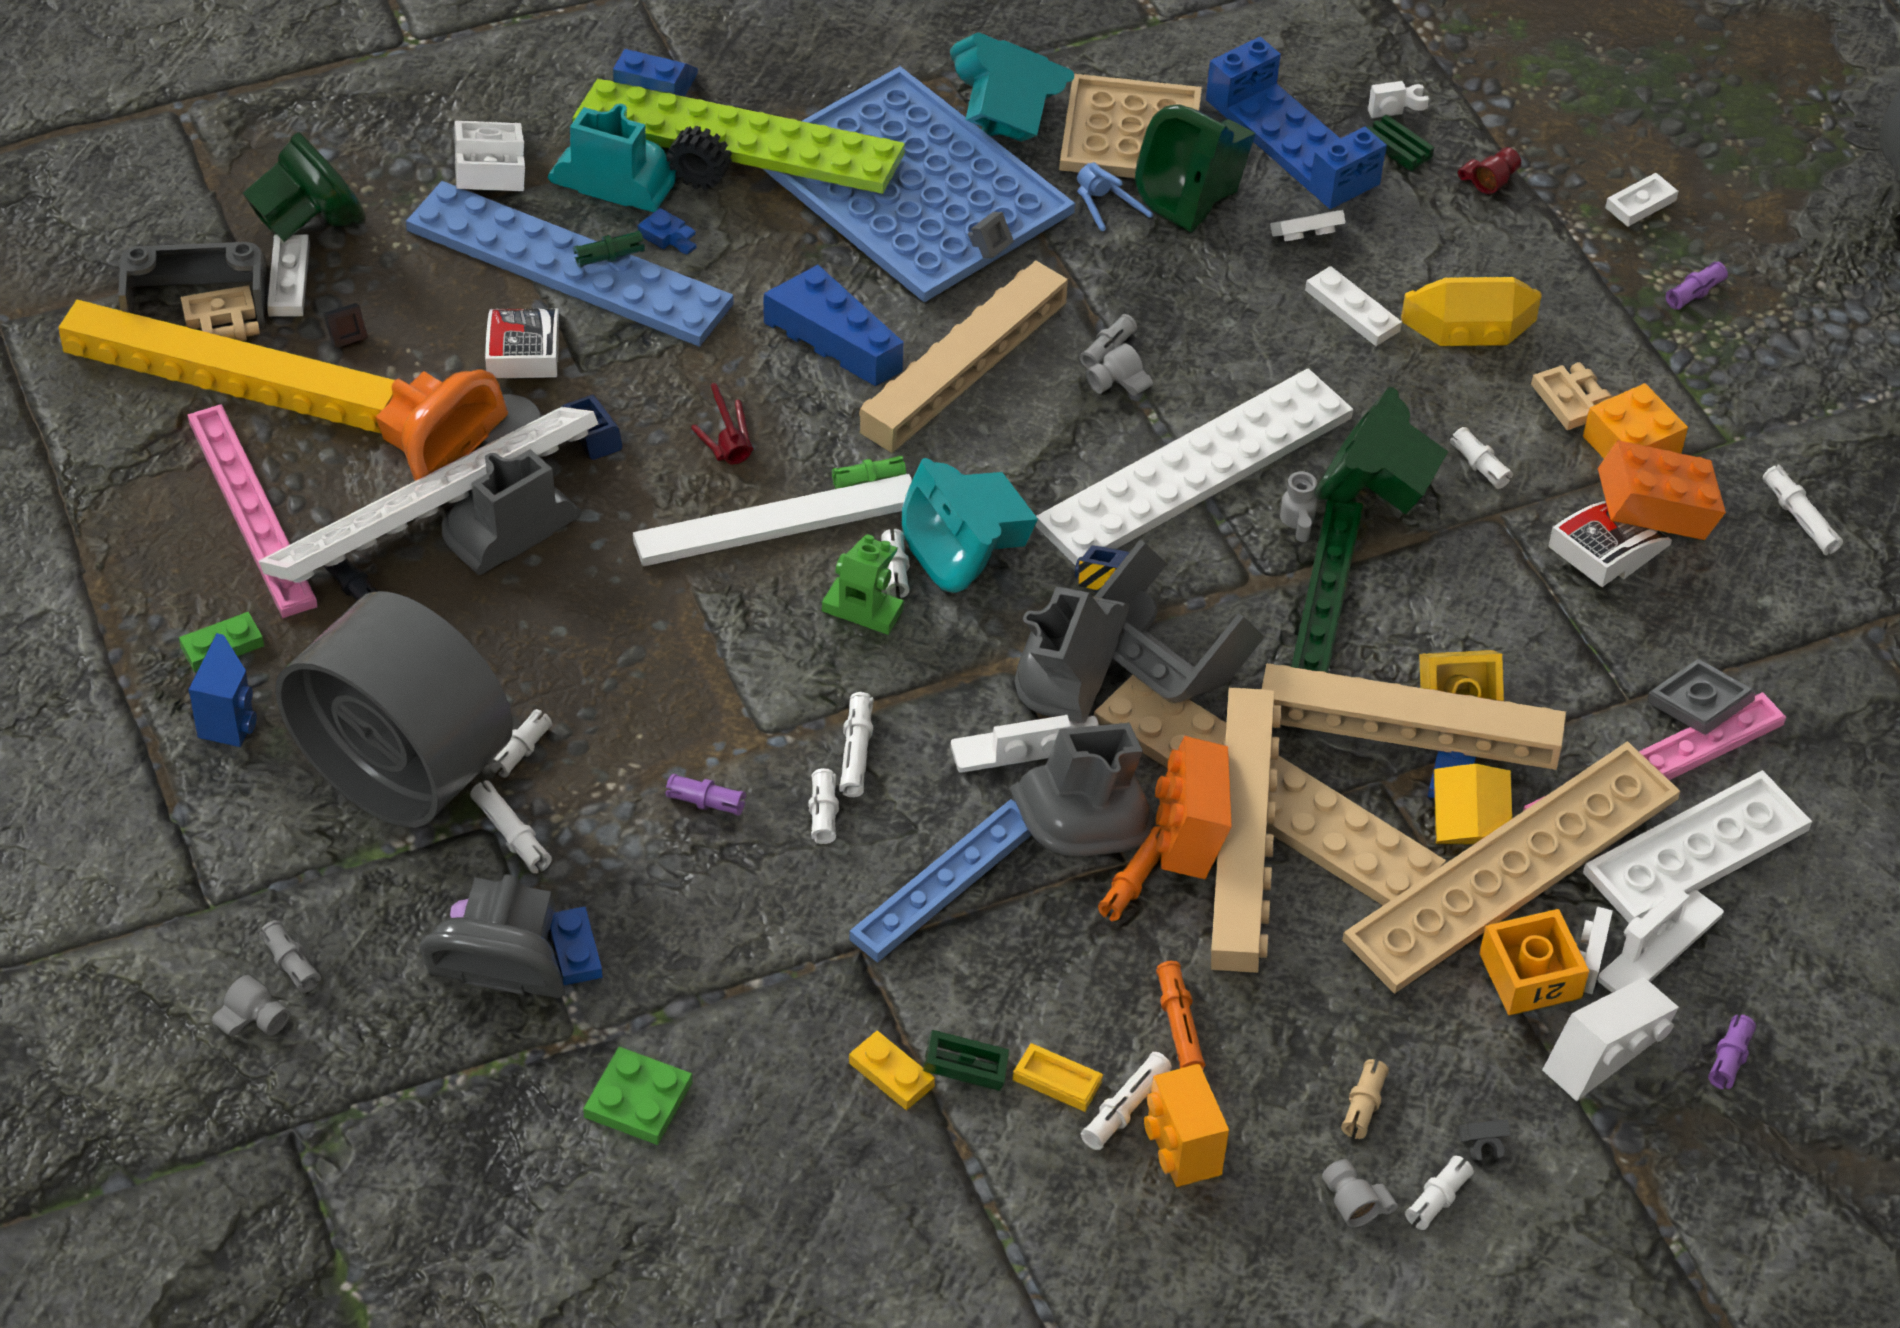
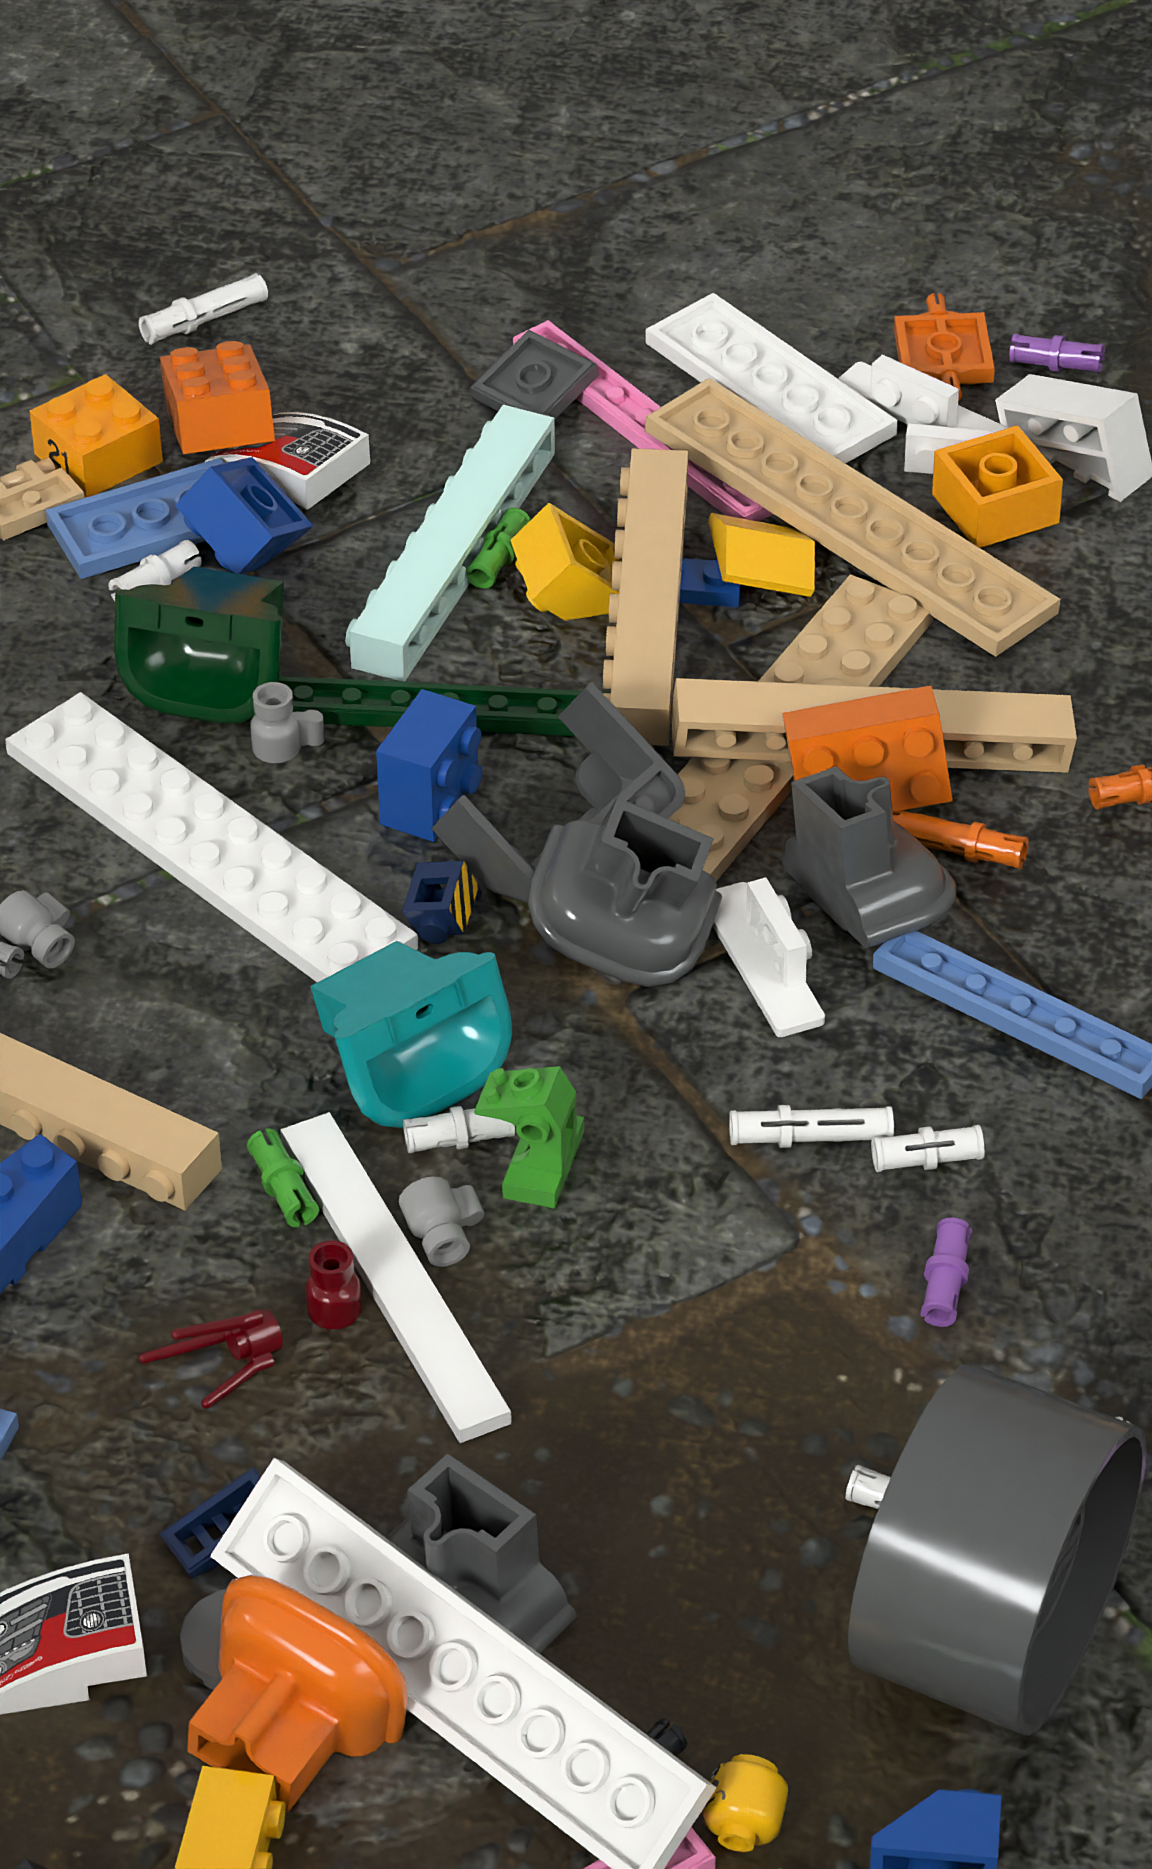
camera: 95 degrees left, 5 degrees down
(305, 620) = (746, 1803): none -> yellow head
(762, 484) = (333, 1286): none -> dark red piece
(814, 538) = (437, 1217): none -> light grey piece
(1231, 567) = (427, 763): none -> blue brick
(1503, 624) = (432, 569): none -> light aqua brick
(1513, 659) = (496, 549): none -> bright green pin
(1525, 497) = (242, 515): none -> blue slope
(1544, 459) = (125, 522): none -> medium blue plate
(1739, 972) = (946, 344): none -> orange plate

